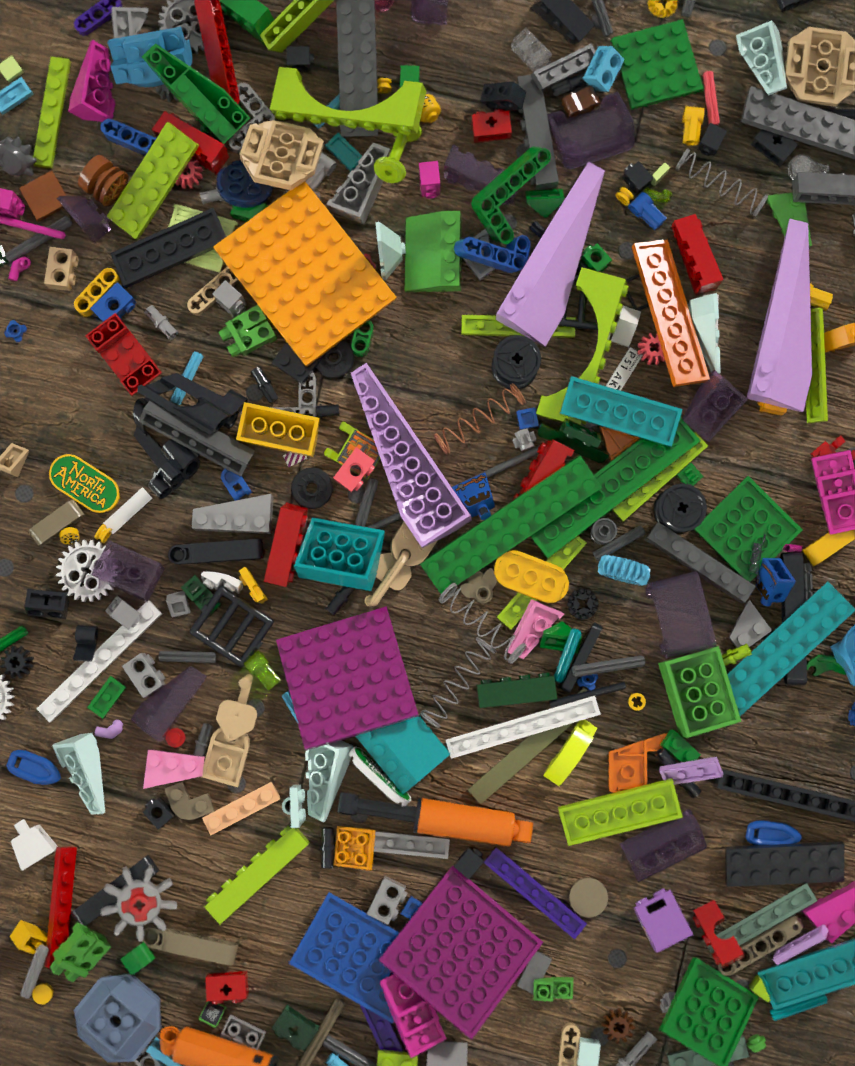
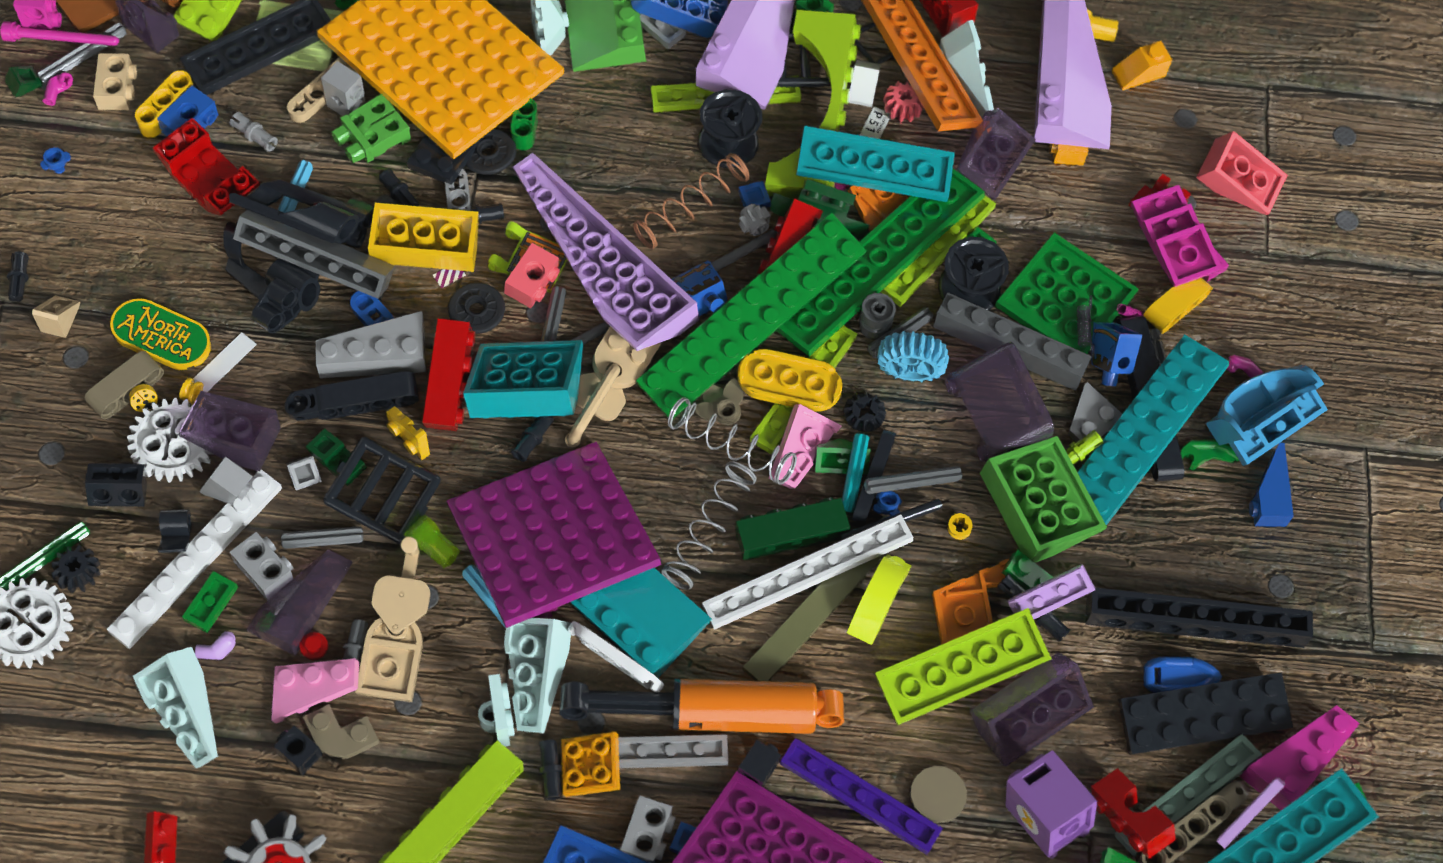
camera: 15 degrees left, 20 degrees down
(31, 844) = (109, 818): white torso -> none
(33, 768) = (105, 711): blue piece -> none
(215, 580) = (352, 429): white slope -> none
(241, 808) = (418, 732): light nougat plate -> none
(817, 394) = (1122, 131): lime plate -> none

